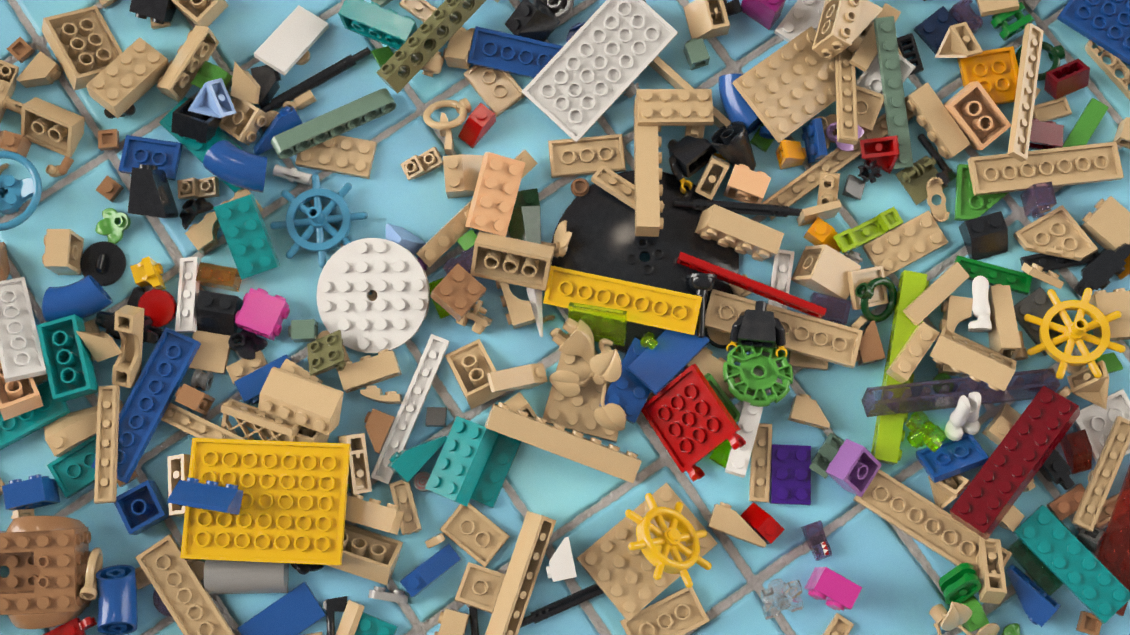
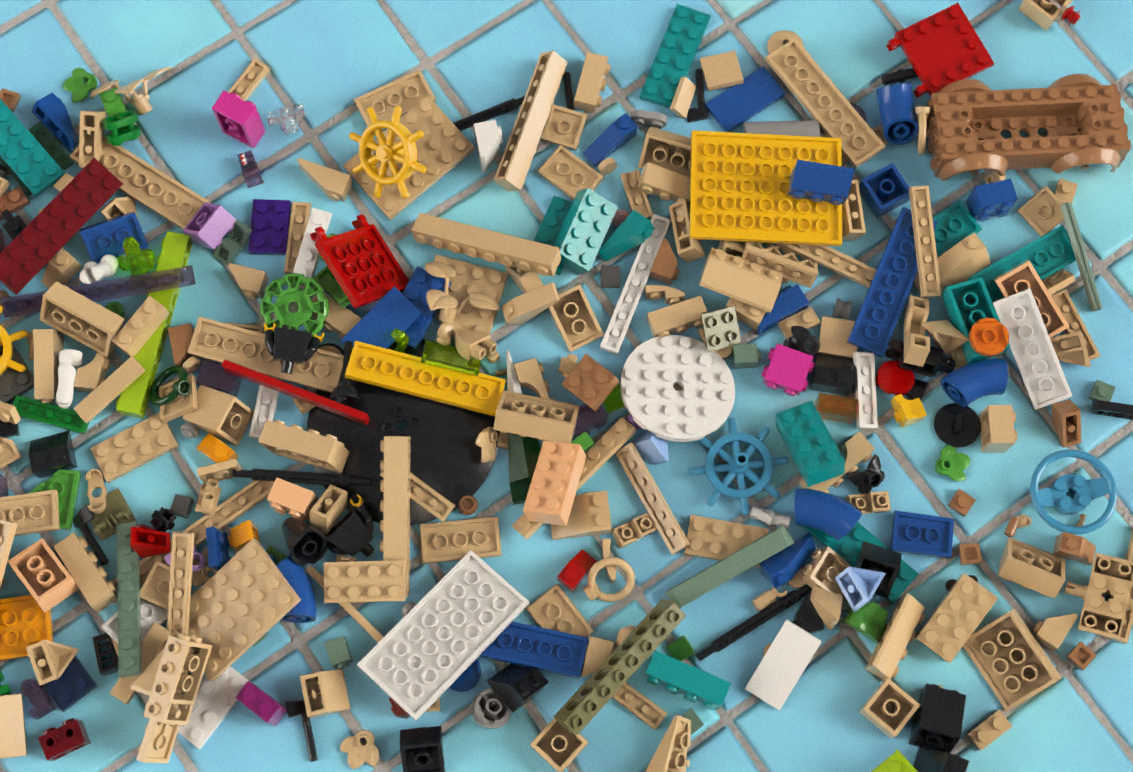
camera: 175 degrees right, 5 degrees down
(55, 333) = (988, 337): none -> orange tile
(151, 193) = (912, 485): black slope -> none
(194, 399) = (847, 285): medium nougat brick -> none
(403, 190) = (652, 498): none -> tan plate
(762, 523) = (299, 181): red slope -> none
(869, 230) = (172, 459): lime slope -> none

